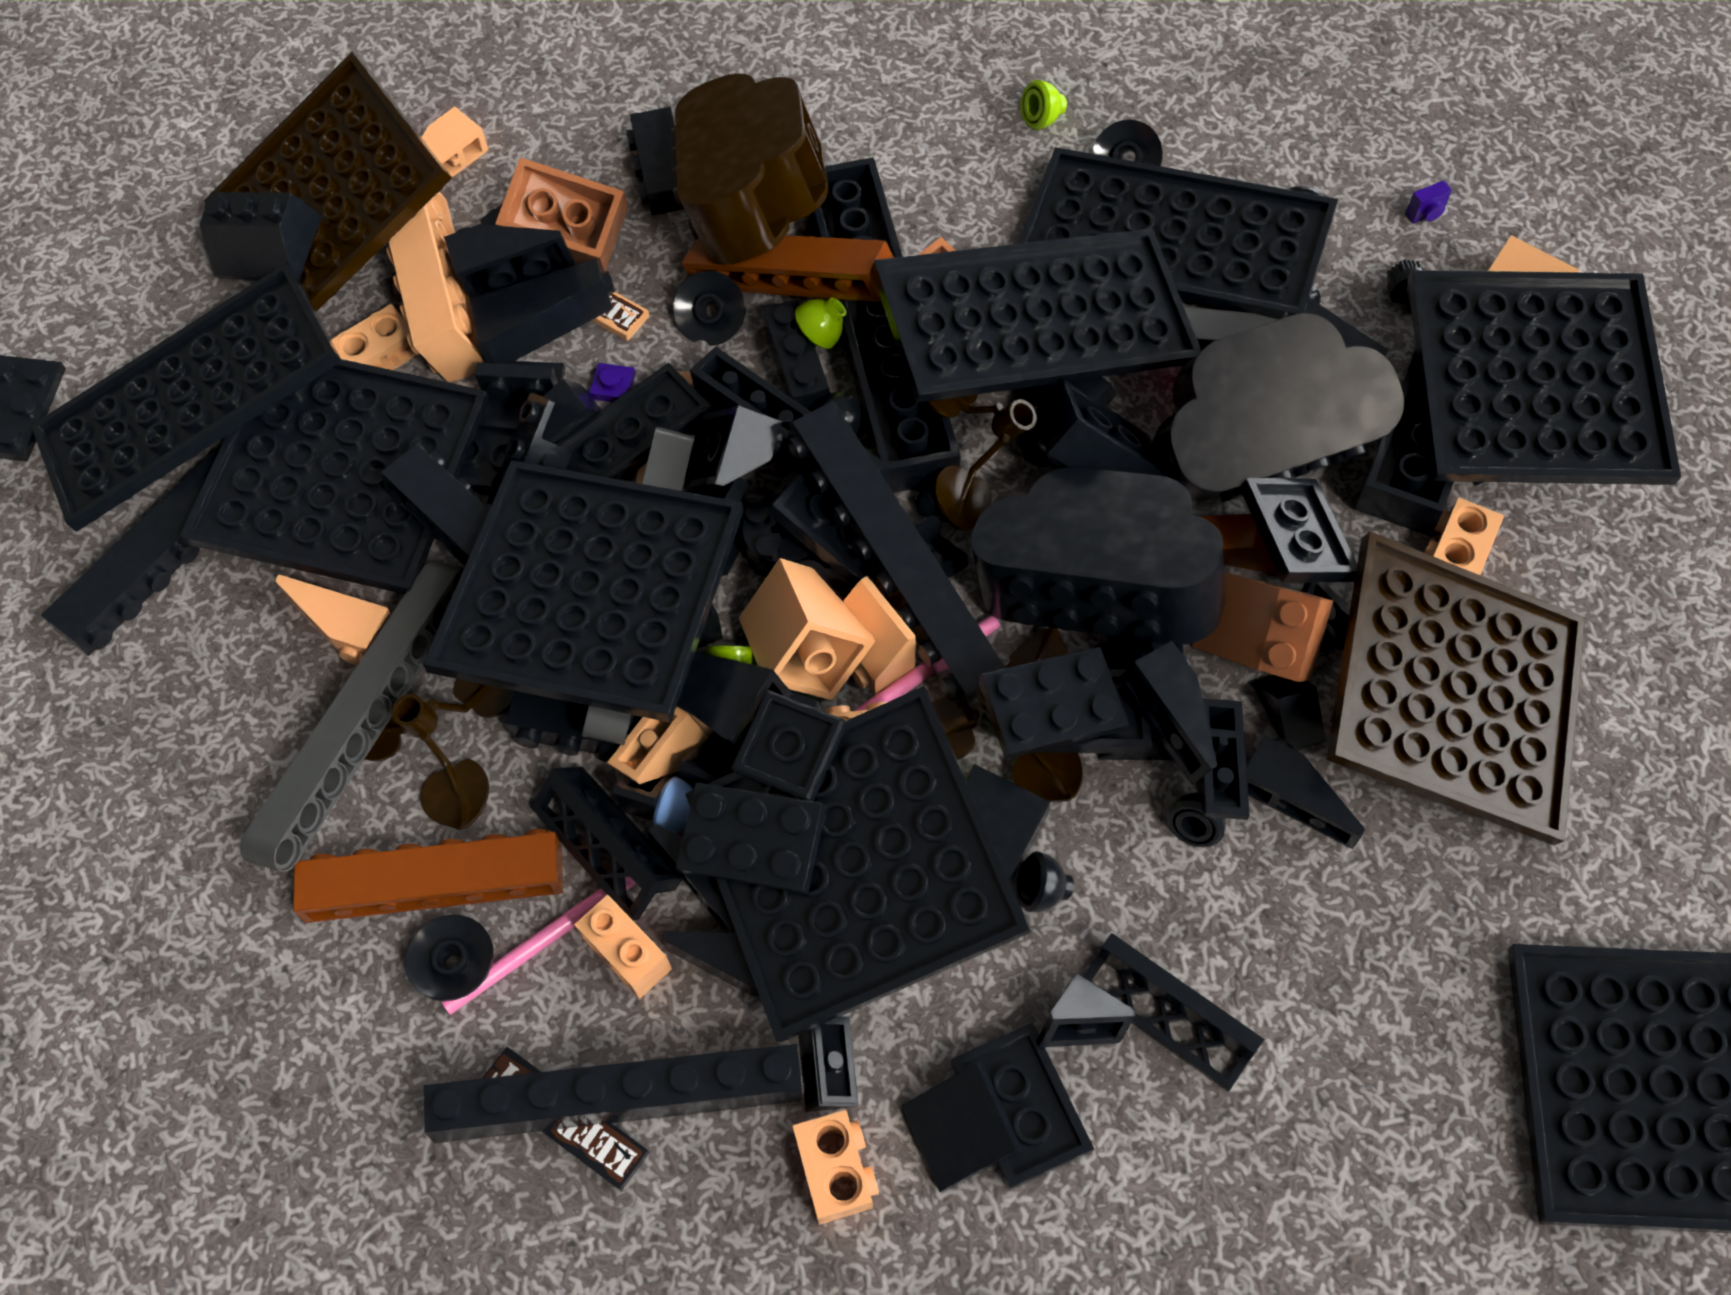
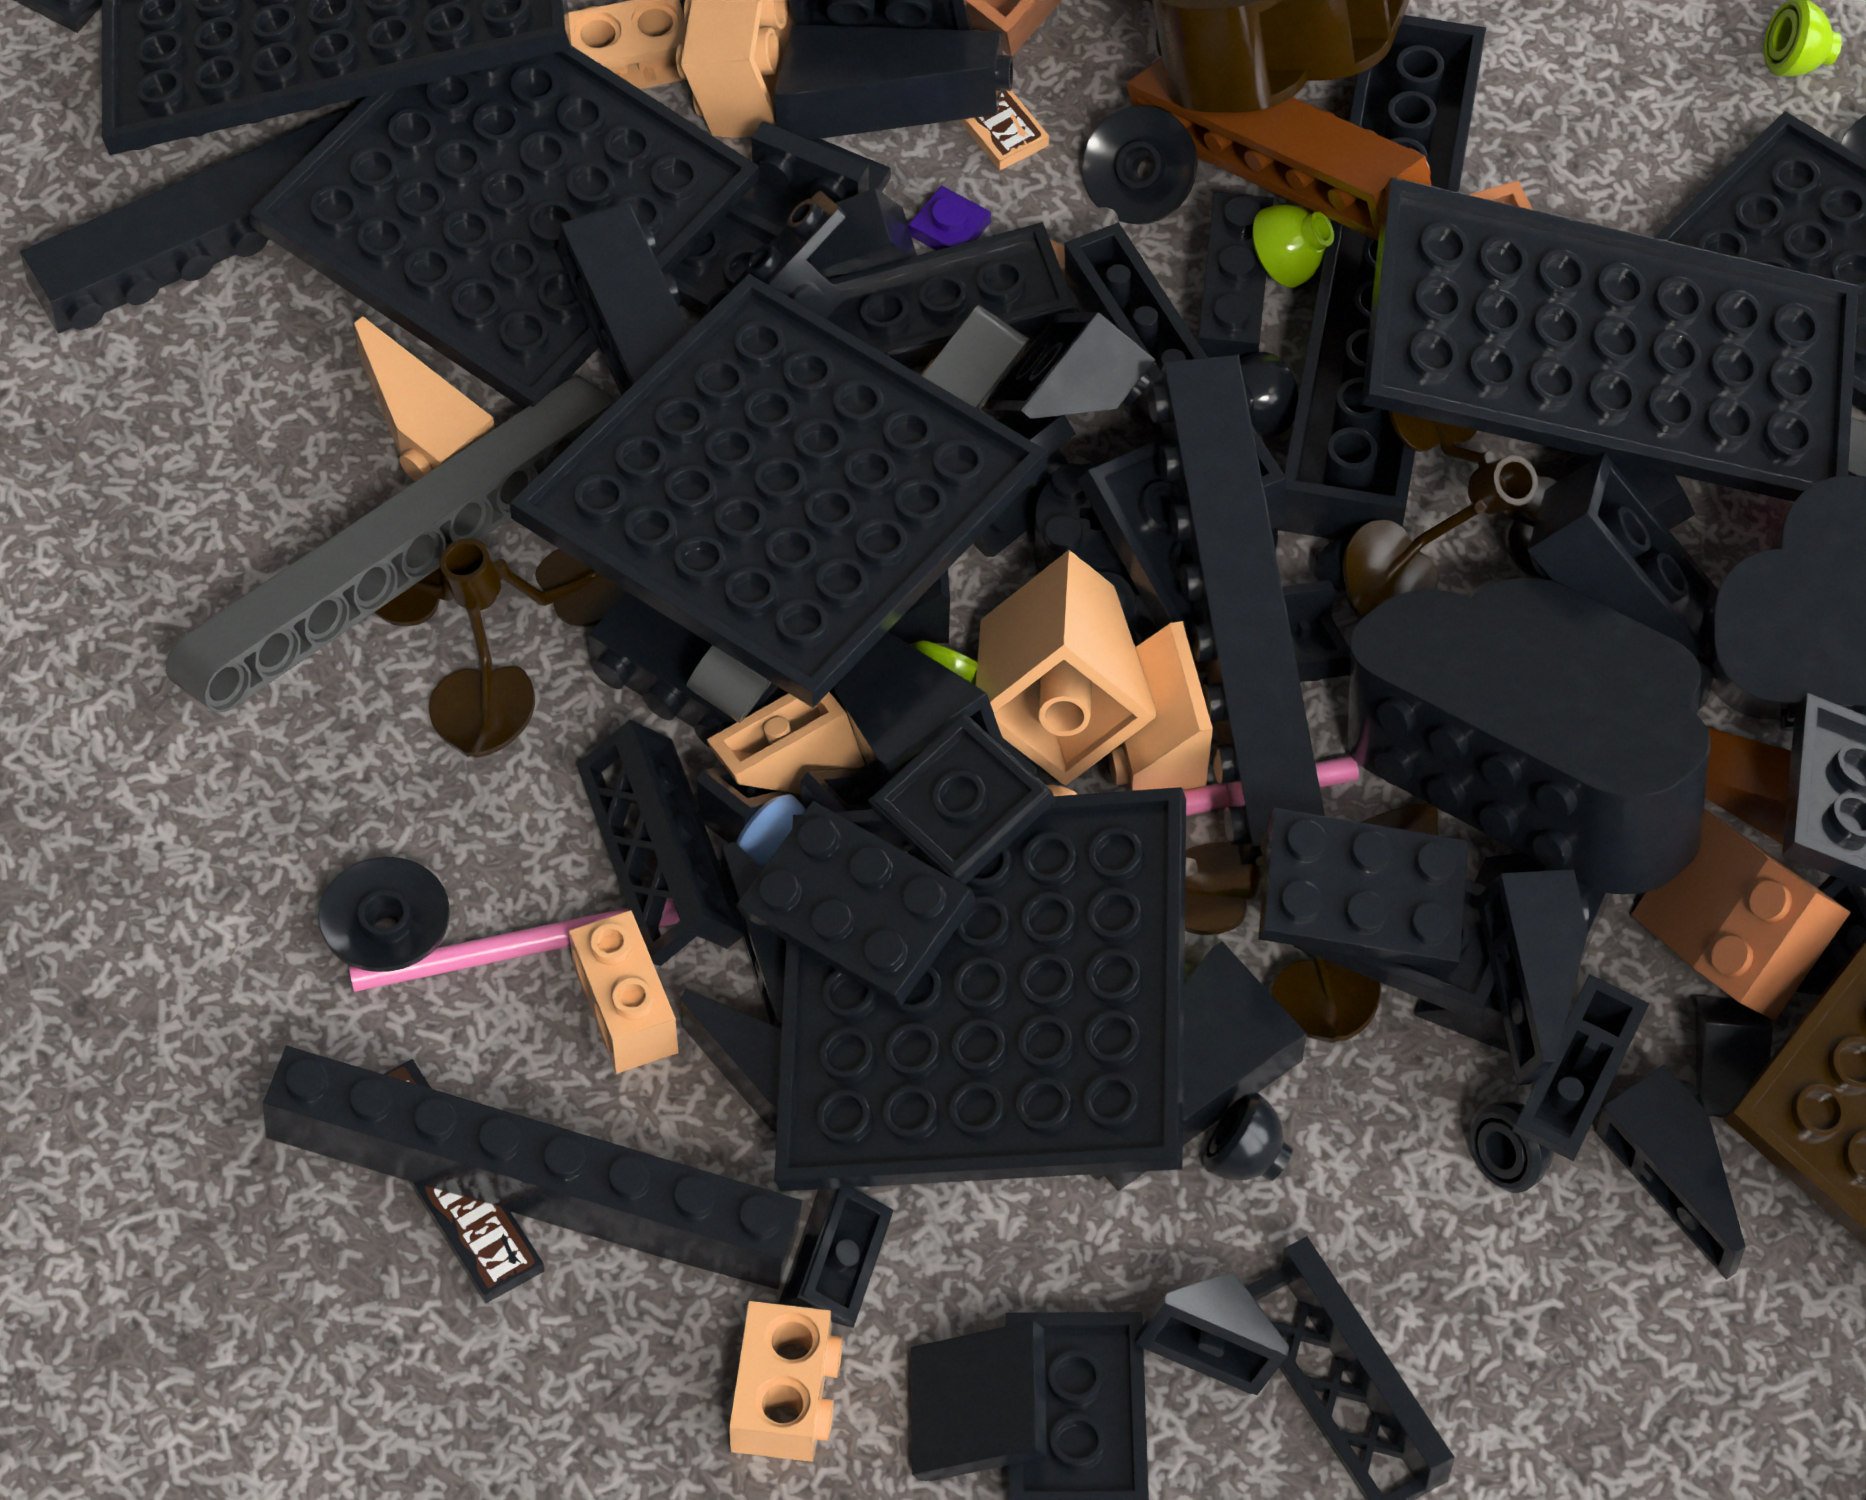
camera: 20 degrees right, 5 degrees down
(428, 876) = (402, 800): dark orange brick -> none

